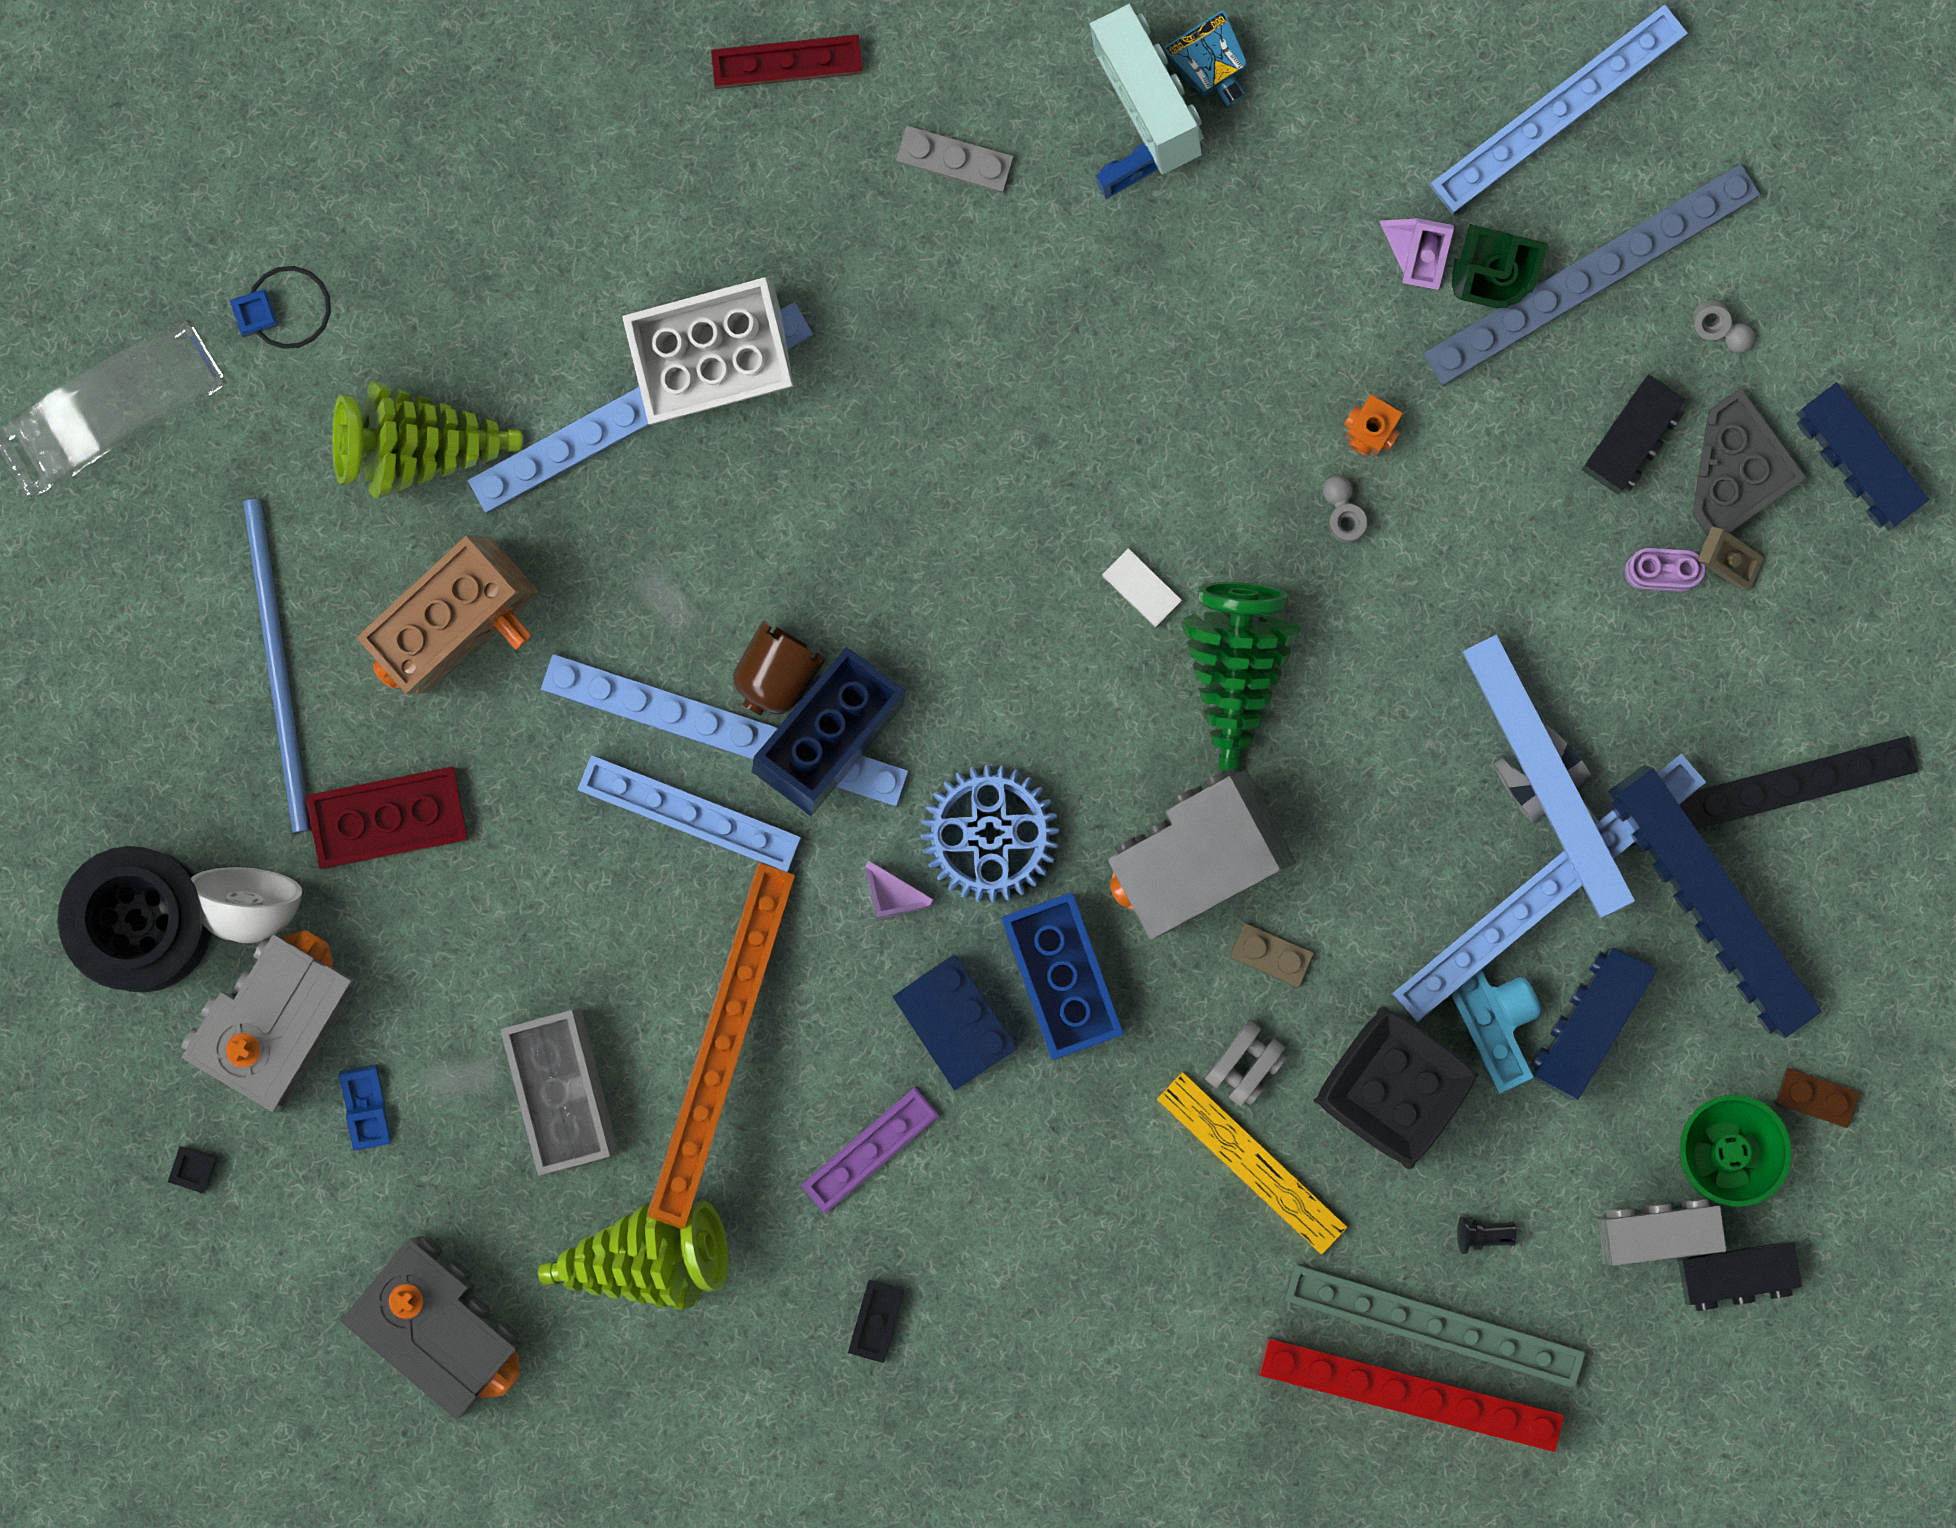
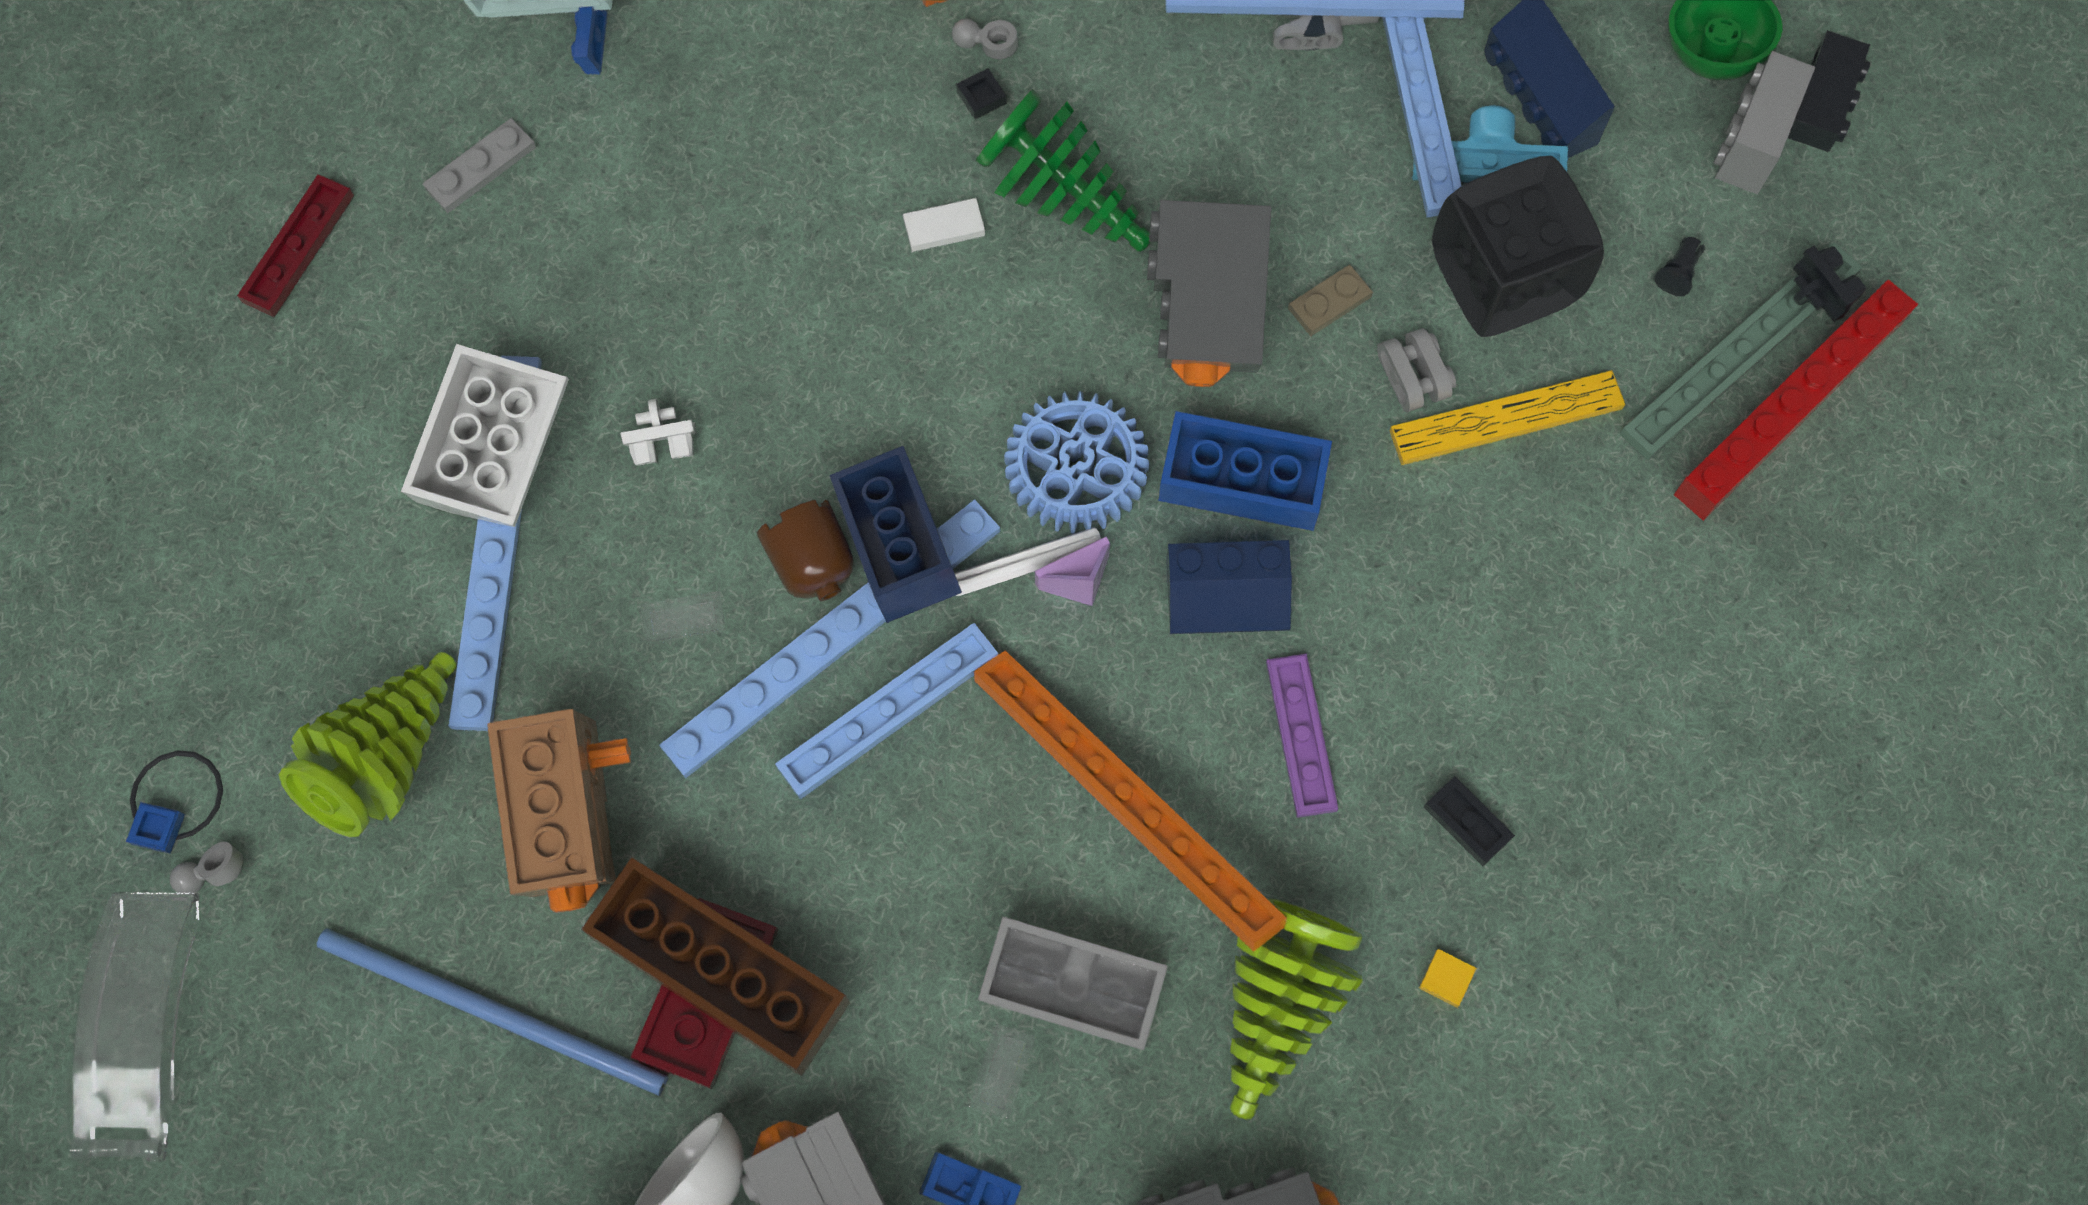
camera: 55 degrees left, 15 degrees down
(235, 366) = (217, 866): none -> light grey plate
(404, 818) = (716, 966): none -> reddish brown brick
(741, 1372) = (1447, 978): none -> yellow tile
(809, 475) = (642, 440): none -> white hips
(881, 845) = (1023, 561): none -> white axle
(1285, 541) = (981, 93): none -> black plate
(1540, 1350) = (1823, 286): none -> black hips

